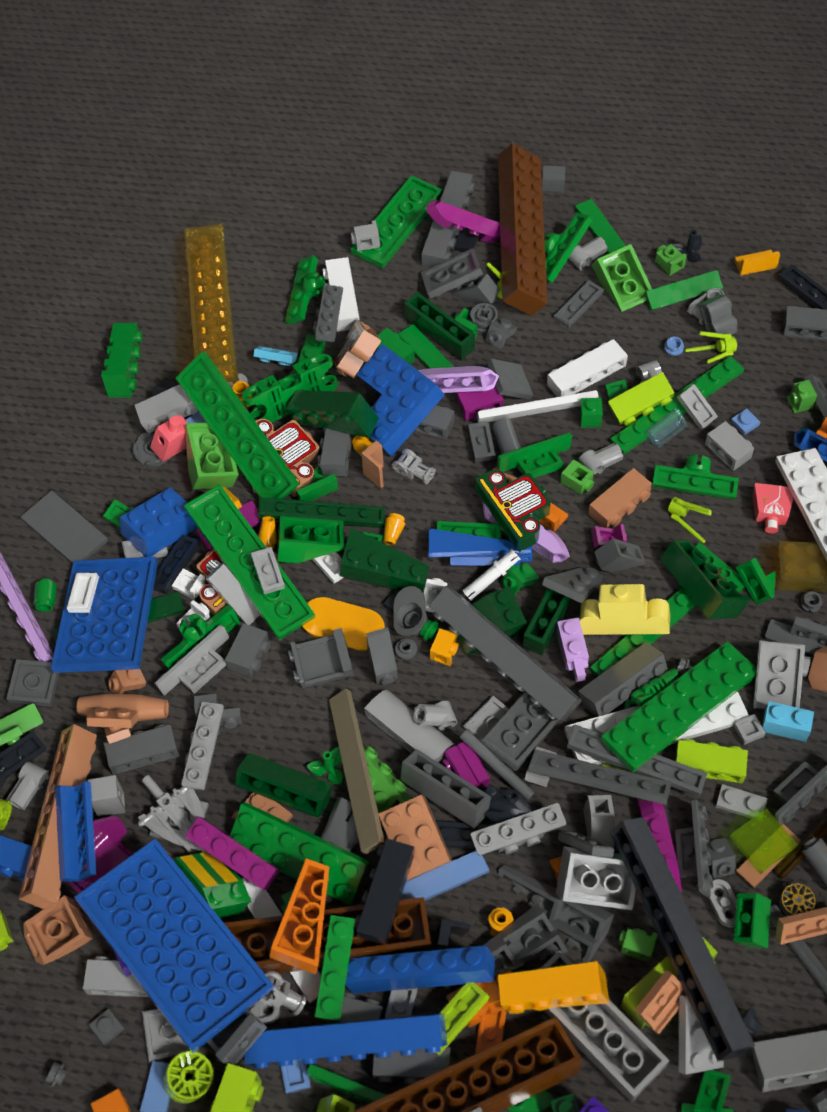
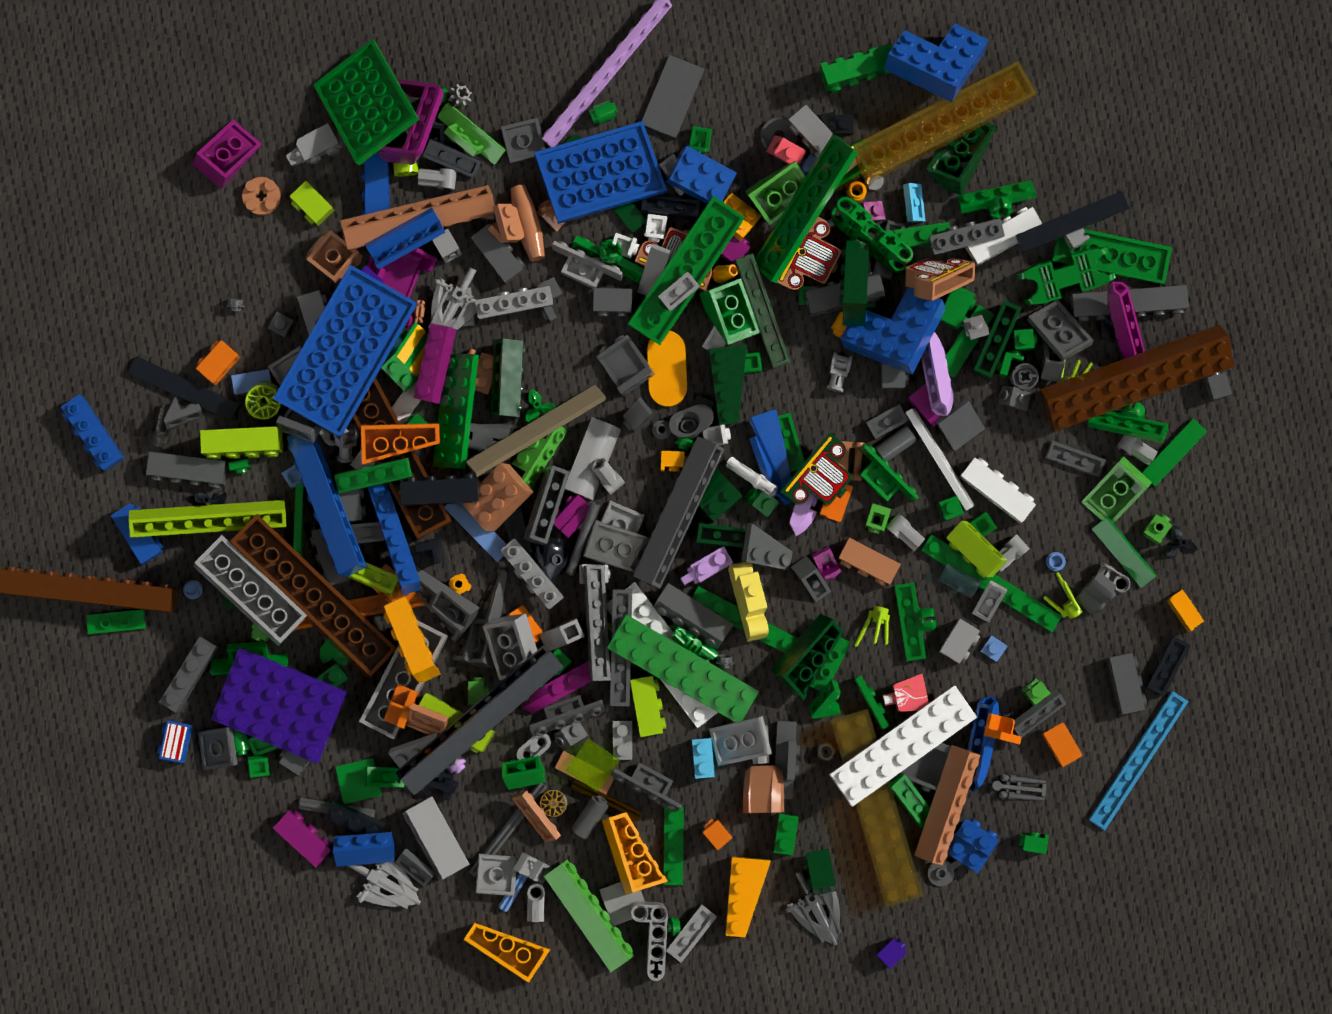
camera: 70 degrees right, 25 degrees up
(82, 593) = (611, 145): white tile -> none
(153, 284) = (936, 68): none -> blue piece
(253, 307) = (959, 161): none -> dark green wedge
(318, 489) = (785, 297): green tile -> none
(354, 228) = (1072, 222): none -> black tile
(373, 463) = (825, 334): nougat panel -> none
(393, 527) = (770, 377): light orange cone -> none
(400, 268) = (1066, 275): none -> green piece
(420, 333) = (975, 327): none -> light grey bracket
(449, 303) = (1023, 340): none -> green brick
(586, 844) = (535, 629): dark grey tile -> none
(632, 1032) = (399, 706): none -> orange panel
(749, 729) = (687, 729): light grey plate -> none
(766, 542) = (876, 709): none -> green plate

